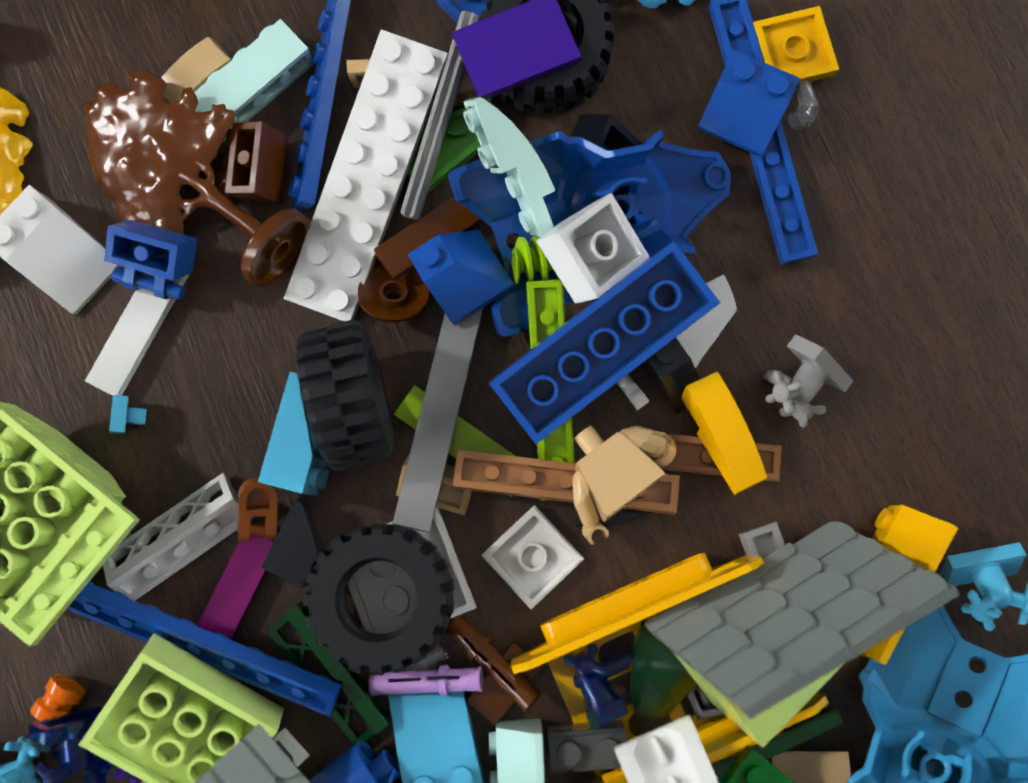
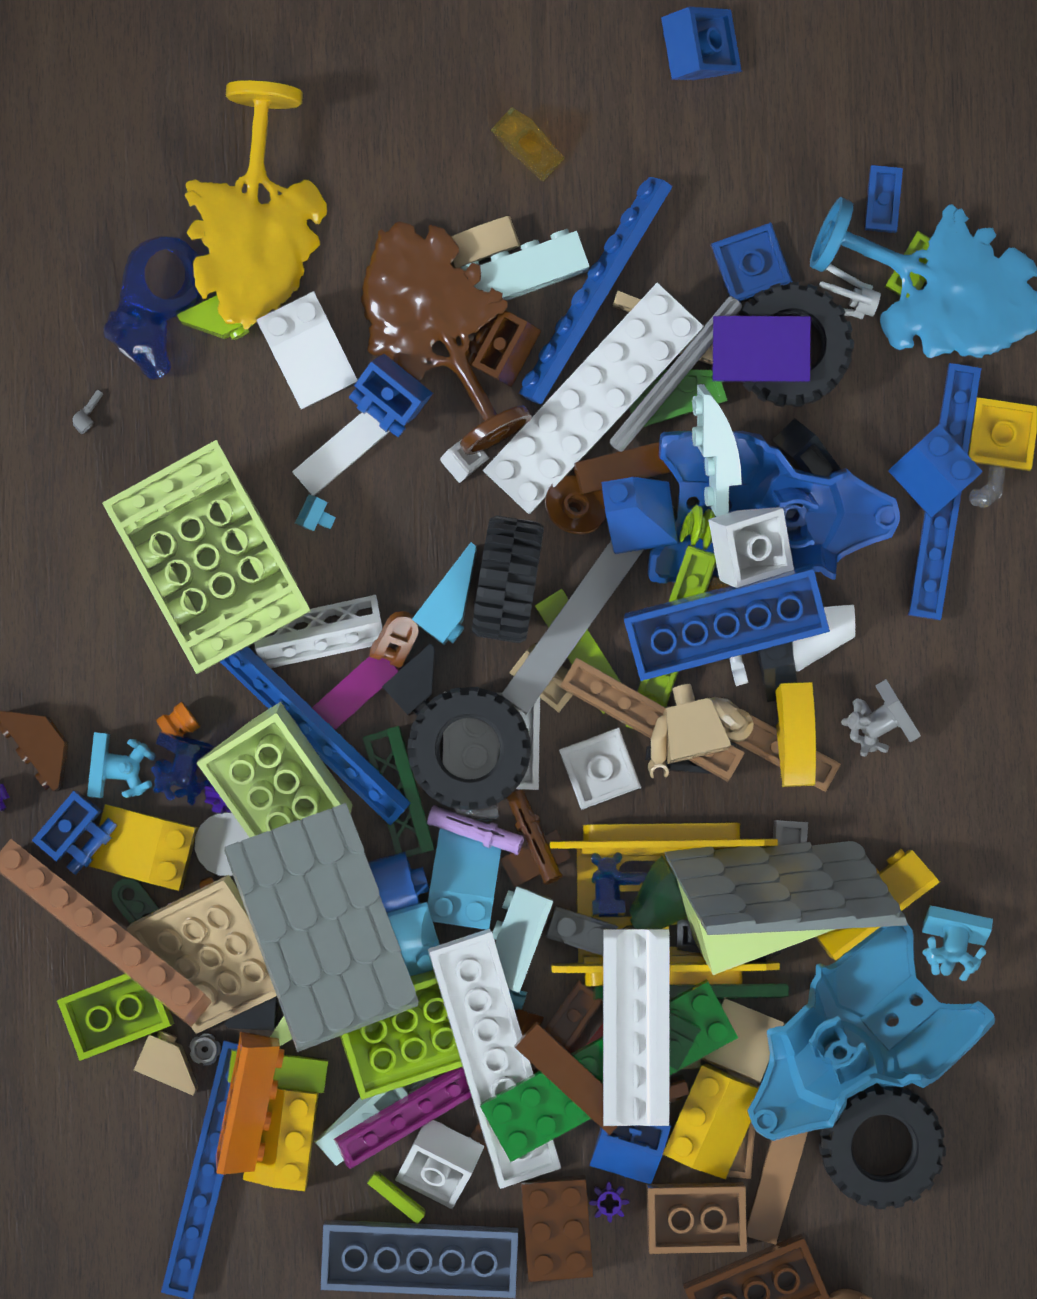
camera: 20 degrees right, 5 degrees up
(260, 300) = (460, 464): none -> white slope

